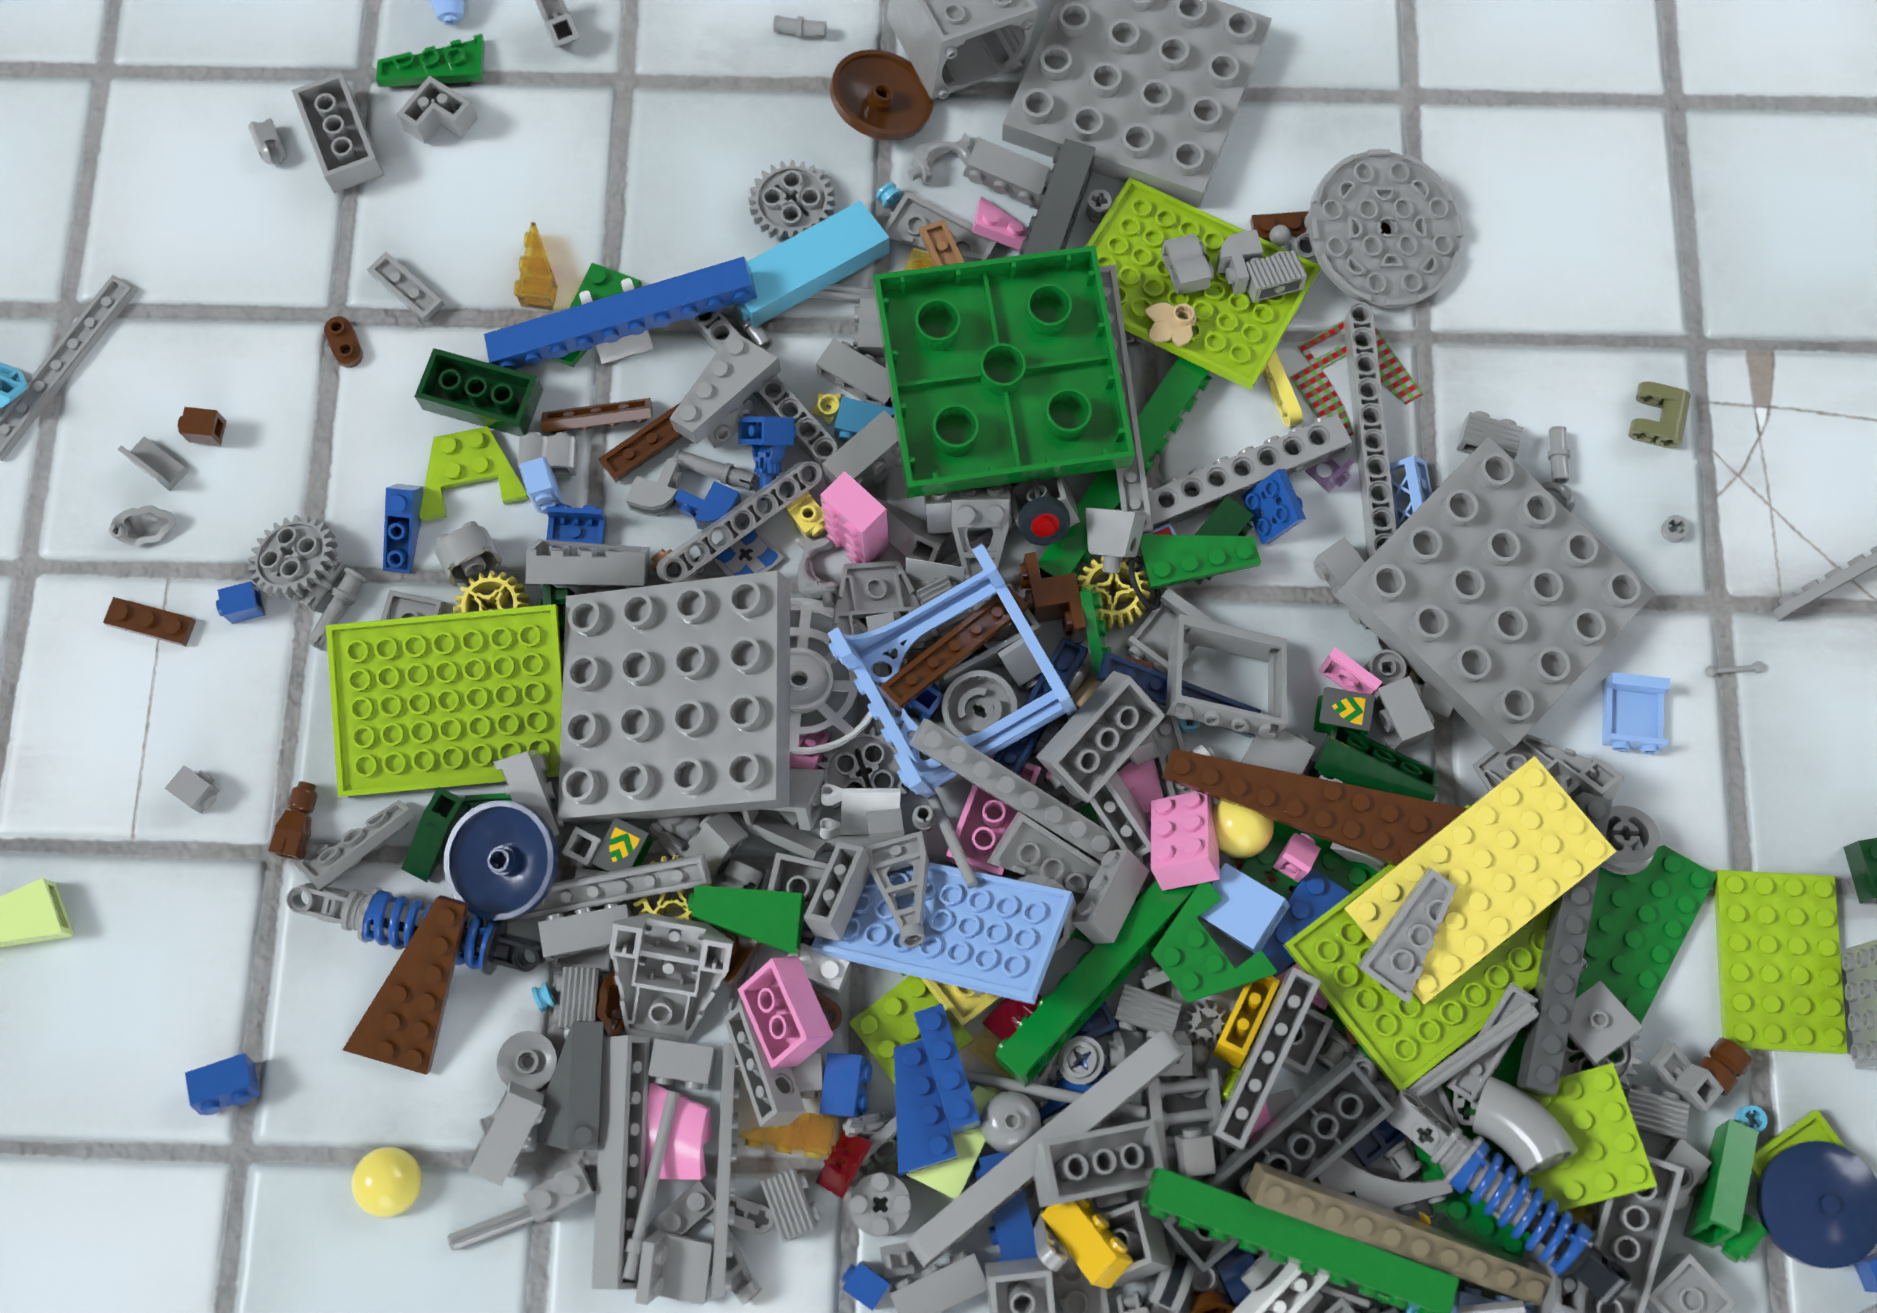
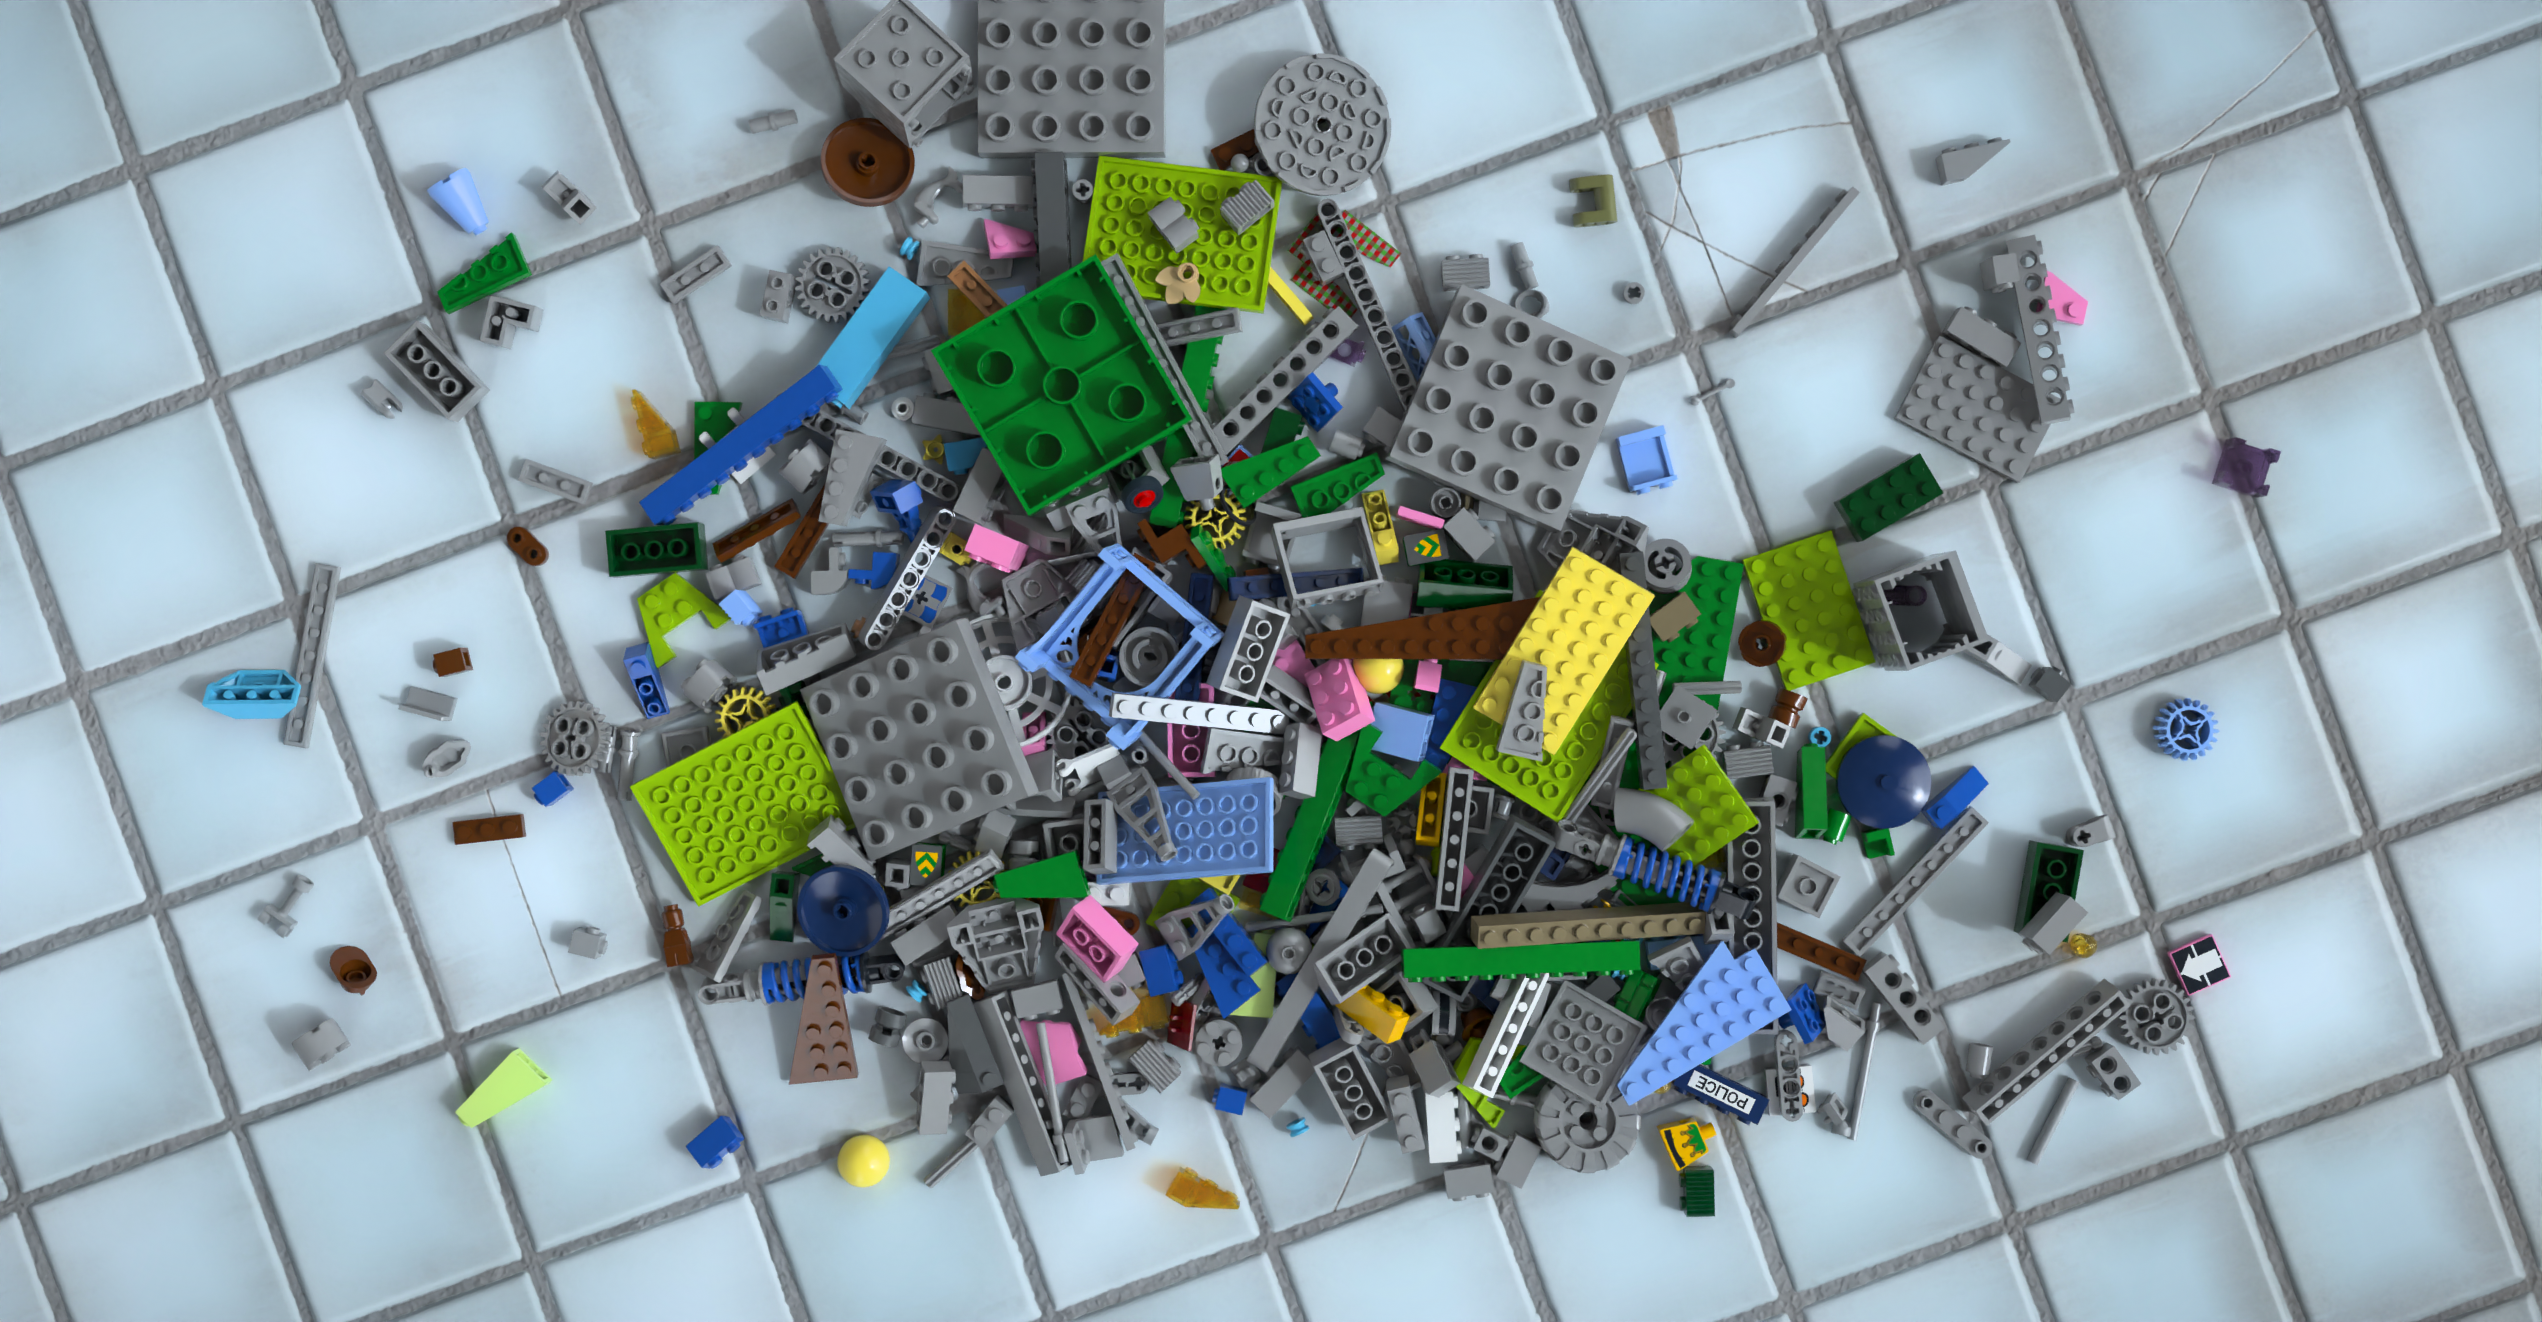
camera: 20 degrees left, 15 degrees up
(497, 1017) = (890, 1019): none -> dark grey wheel
(652, 140) = (695, 274): none -> light grey plate
(678, 365) = (805, 466): none -> light grey brick
(729, 191) = (778, 296): none -> light grey brick
(811, 358) = (908, 413): none -> white plate
(881, 1043) = (1177, 934): none -> light grey plate
(1177, 380) = (1201, 327): none -> light grey tile
(1234, 254) = (1209, 201): light grey brick -> none
(1265, 607) = (1335, 487): none -> green wing
(1291, 568) = (1347, 445): none -> light grey brick
(1300, 673) = (1380, 527): none -> light yellow slope
(1335, 363) = (1322, 257): none -> light grey brick
(1619, 900) = (1674, 616): none -> dark tan brick
(1642, 1005) = (1704, 688): none -> light grey axle
(1716, 958) = (1775, 639): none -> reddish brown plate
(1790, 1282) = (1877, 843): none -> green panel

